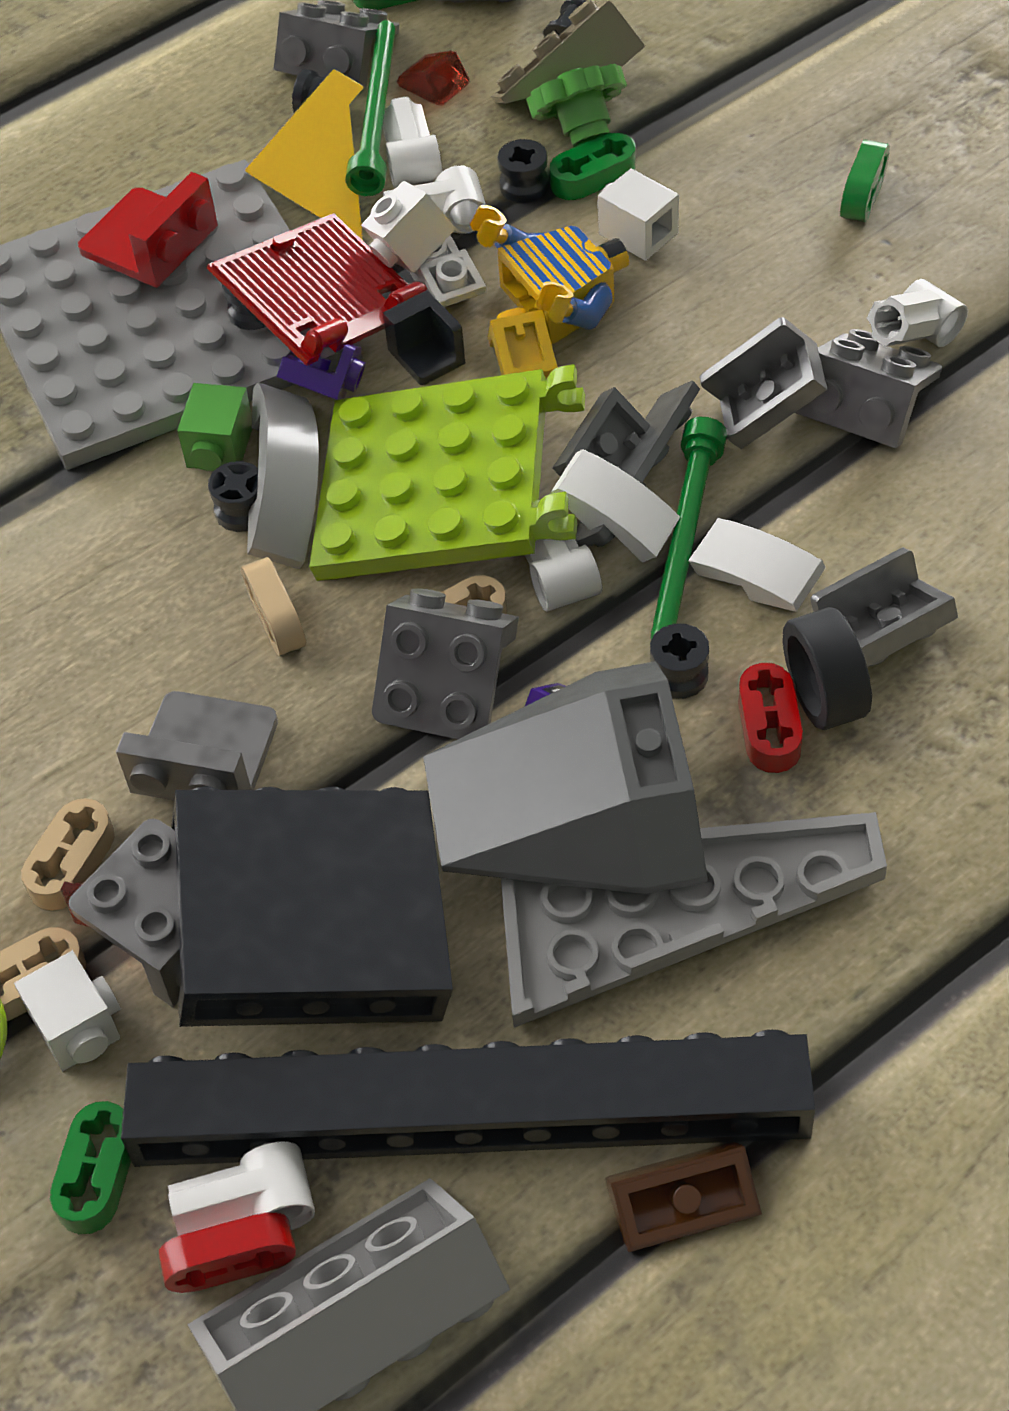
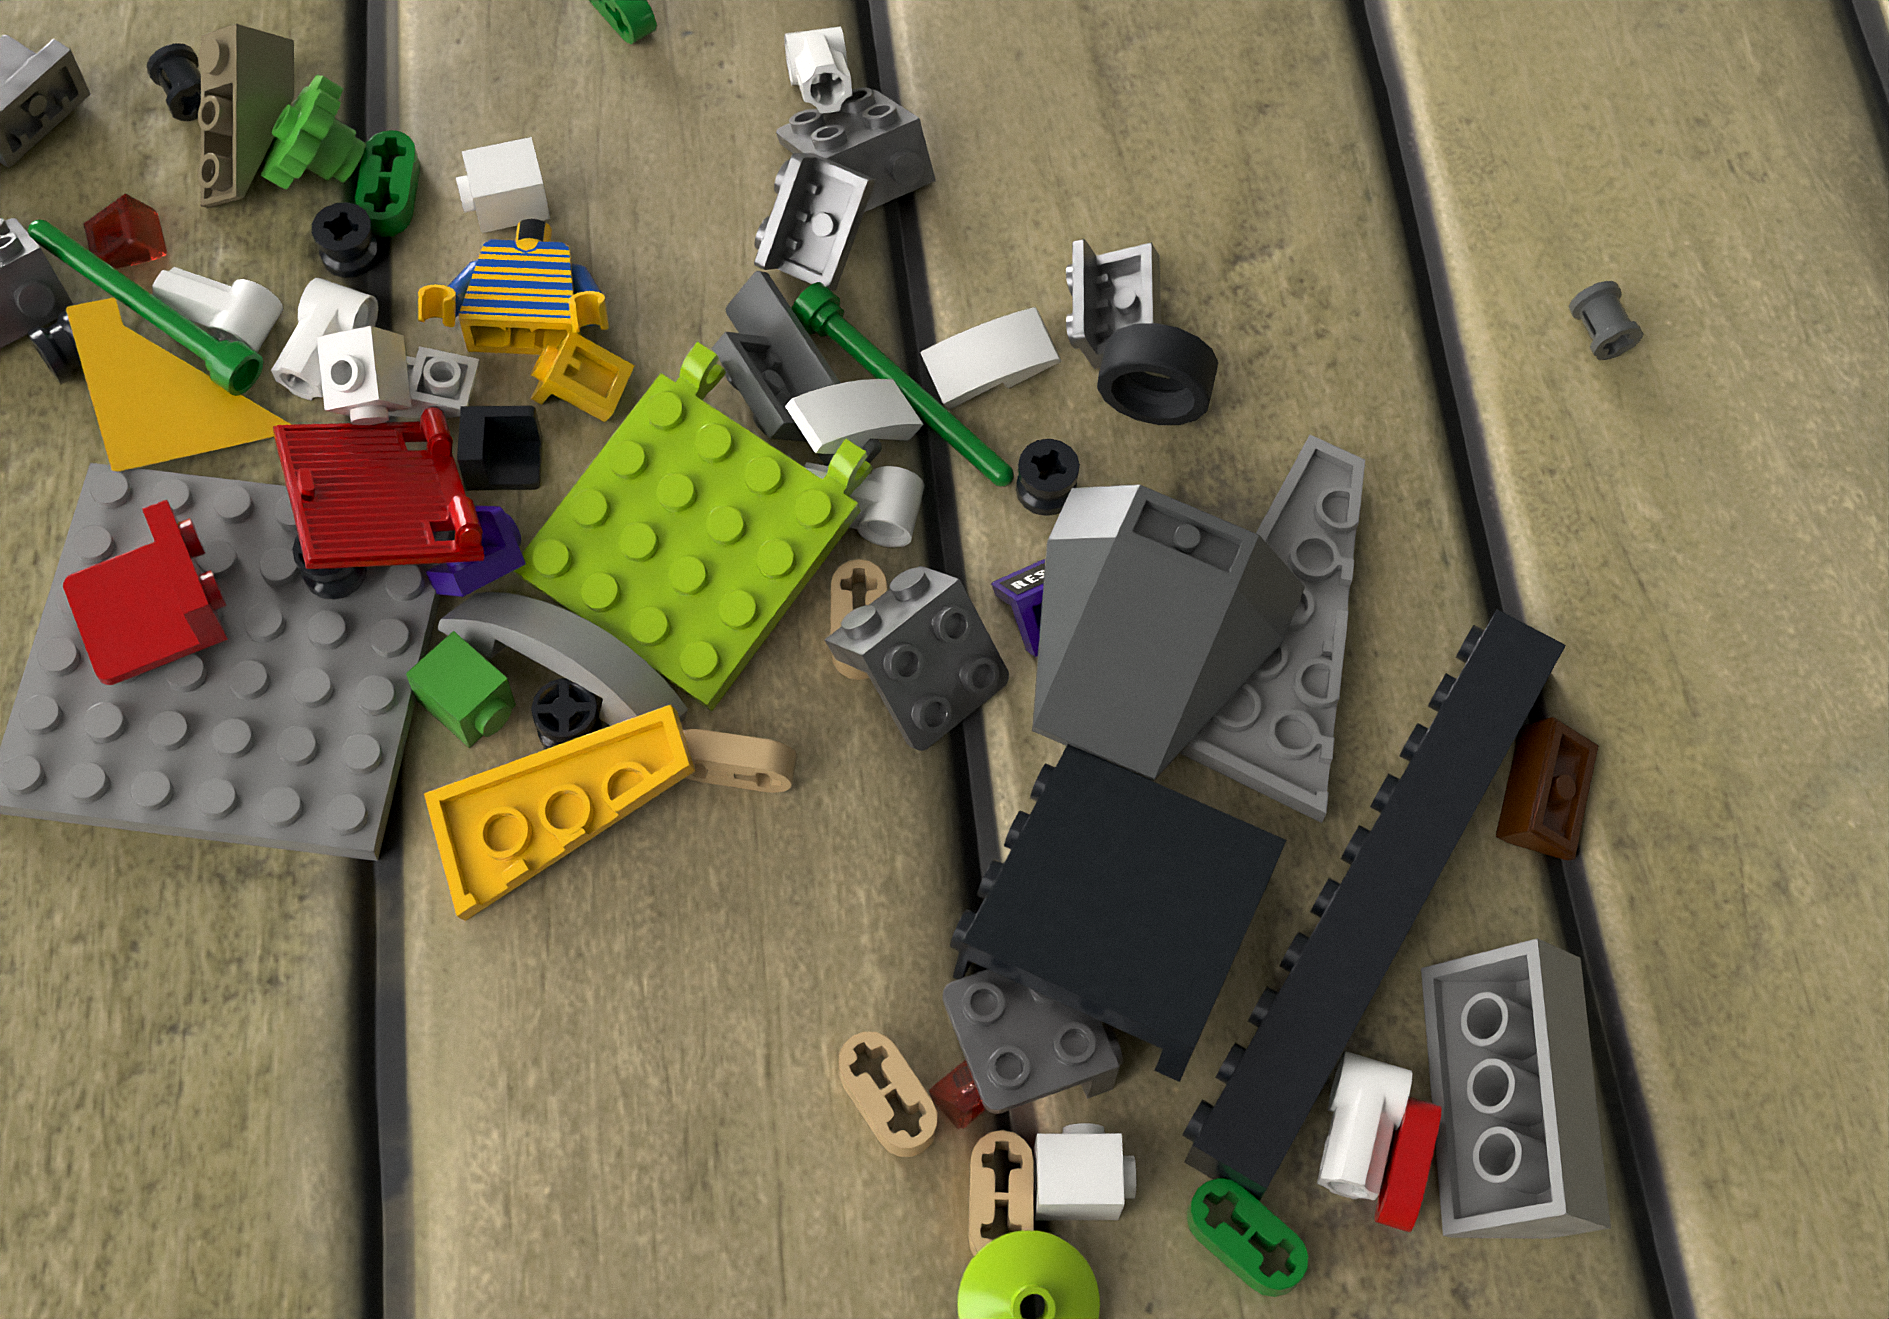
camera: 65 degrees left, 10 degrees up
(158, 520) = (539, 808): none -> yellow wing
(198, 745) = (860, 912): flat silver bracket -> none
(782, 715) = (1149, 449): red beam -> none

